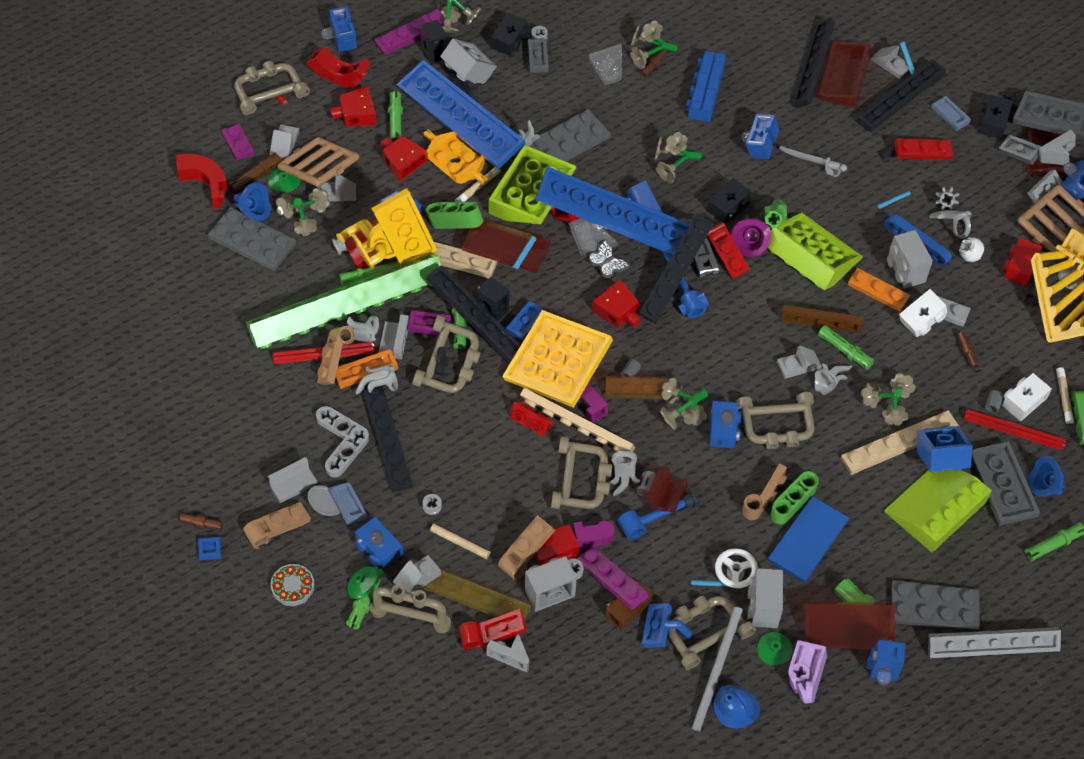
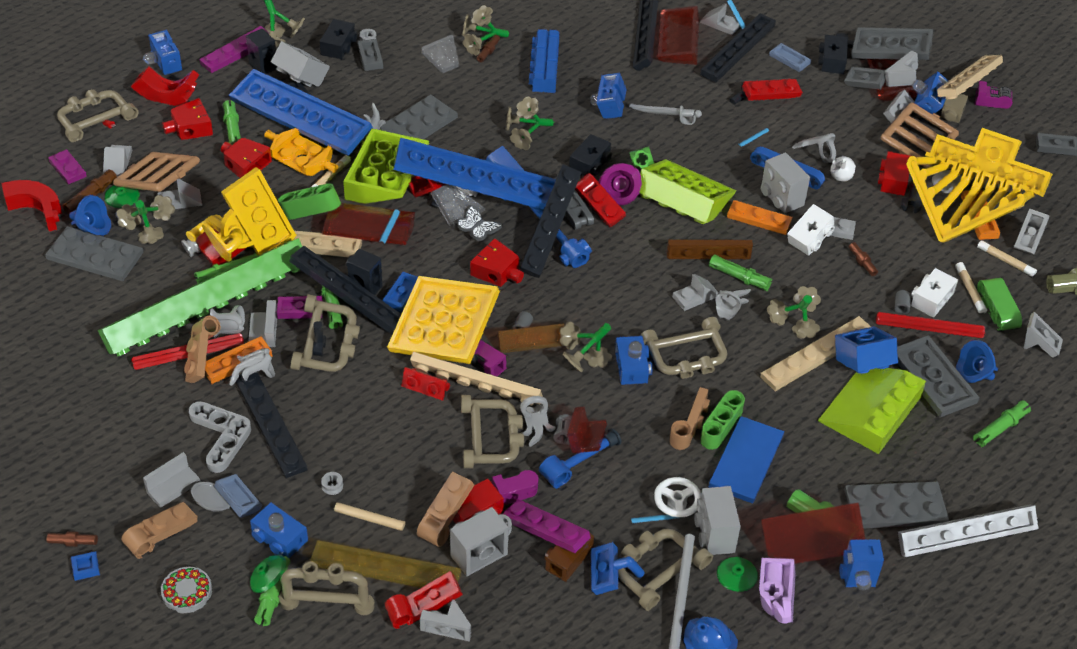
camera: 10 degrees left, 10 degrees down
(417, 575) = (333, 551): light grey slope -> none
(950, 193) = (800, 125): light grey gear -> none

